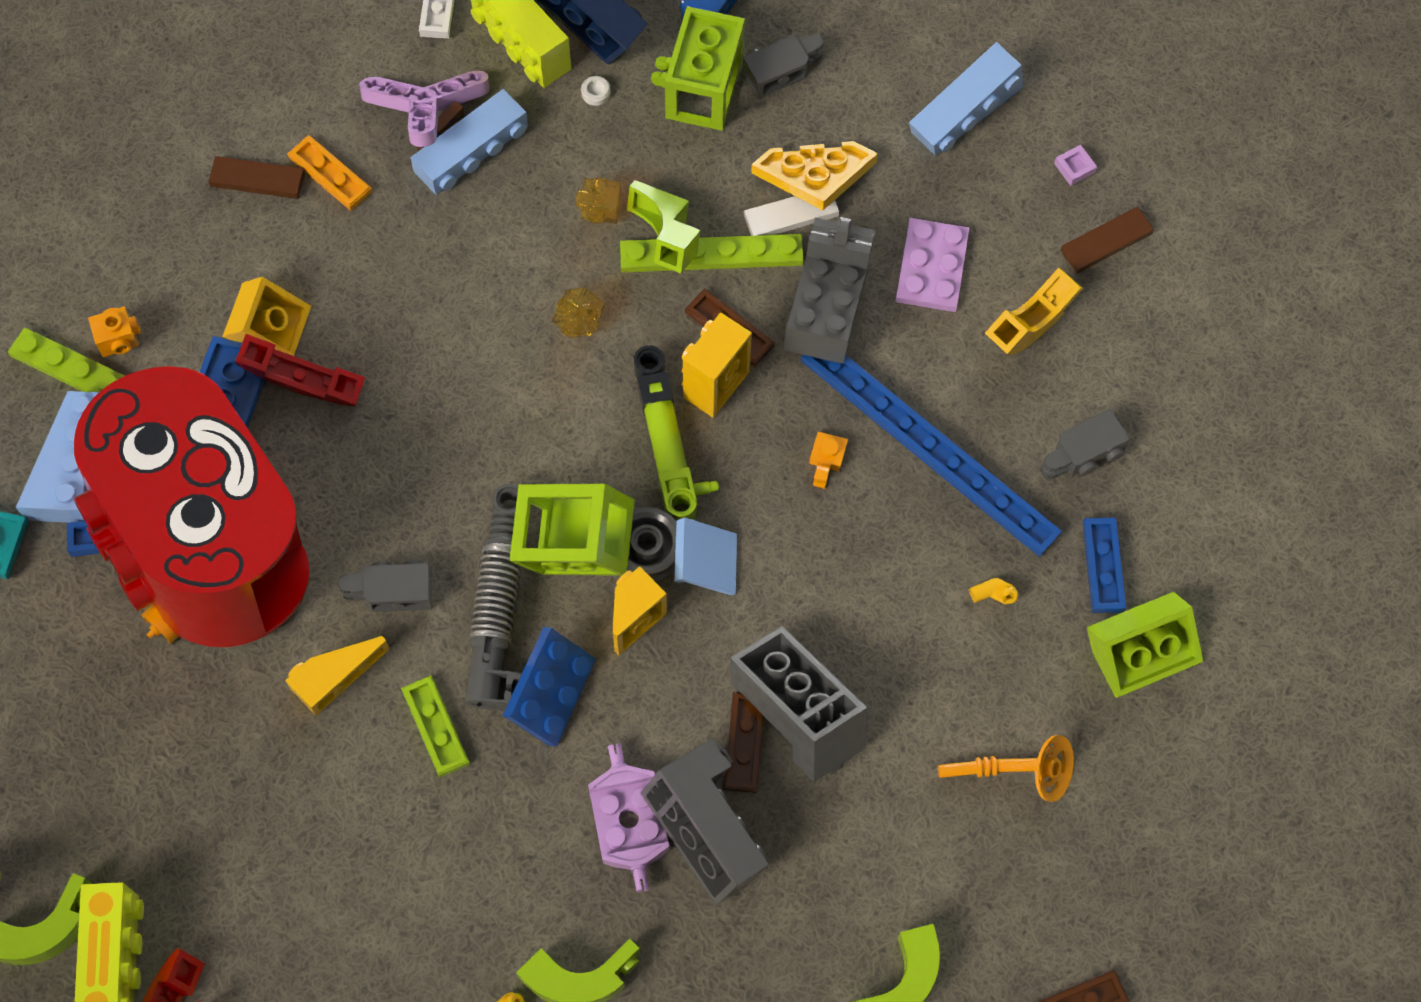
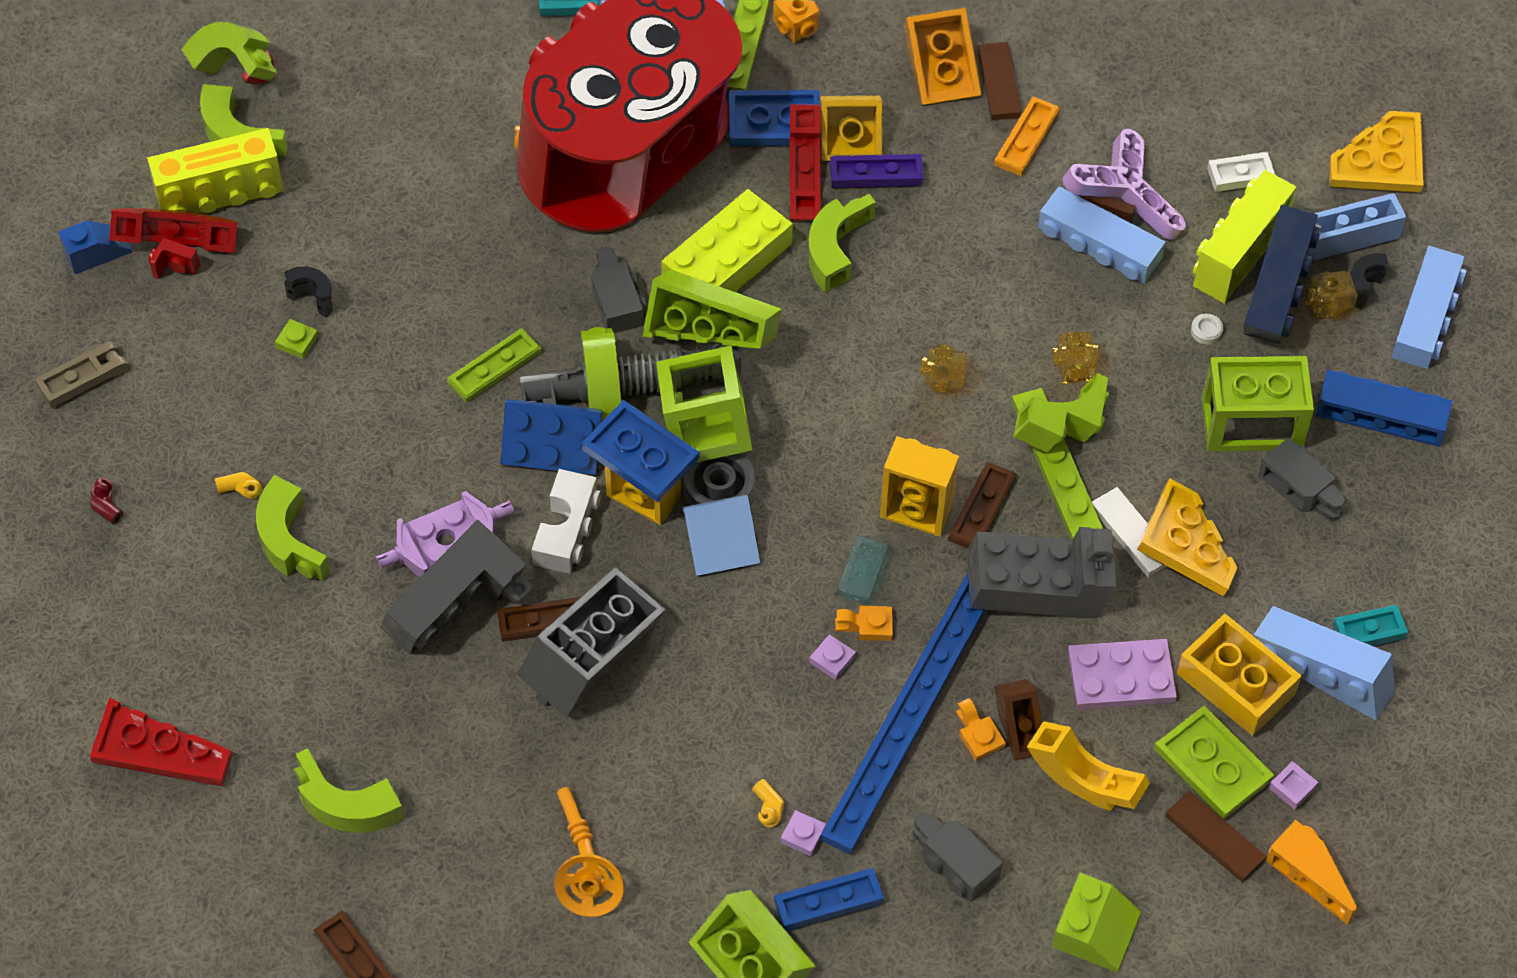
camera: 75 degrees right, 10 degrees down
(213, 215) = (942, 56): none -> light orange slope
(281, 882) = (312, 282): none -> black piece
(325, 312) = (876, 170): none -> dark purple plate
(329, 674) = (514, 266): yellow slope -> none
(338, 919) = (296, 338): none -> lime plate
(380, 470) = (733, 244): none -> neon yellow brick
(398, 382) = (825, 258): none -> lime arch
(464, 499) = (707, 313): none -> lime wedge
(495, 616) = (601, 369): none -> lime arch
(620, 597) = (640, 451): none -> blue plate
(623, 681) = (559, 545): none -> white arch
(658, 408) = (794, 494): lime piece -> none
(772, 445) = (862, 570): none -> clear light blue plate
(854, 497) = (832, 657): none -> lavender plate
(939, 60) = (1373, 626): none -> teal plate
(960, 355) = (1019, 715): none -> reddish brown slope
(965, 394) = (979, 735): none -> light orange plate
(966, 170) = (1238, 674): none -> yellow brick
(1029, 570) = (803, 833): none -> lavender plate
(1039, 218) = (1214, 762): none -> lime plate
(1157, 174) = (1307, 863): none -> light orange slope
(1172, 357) = (1096, 923): none -> lime slope

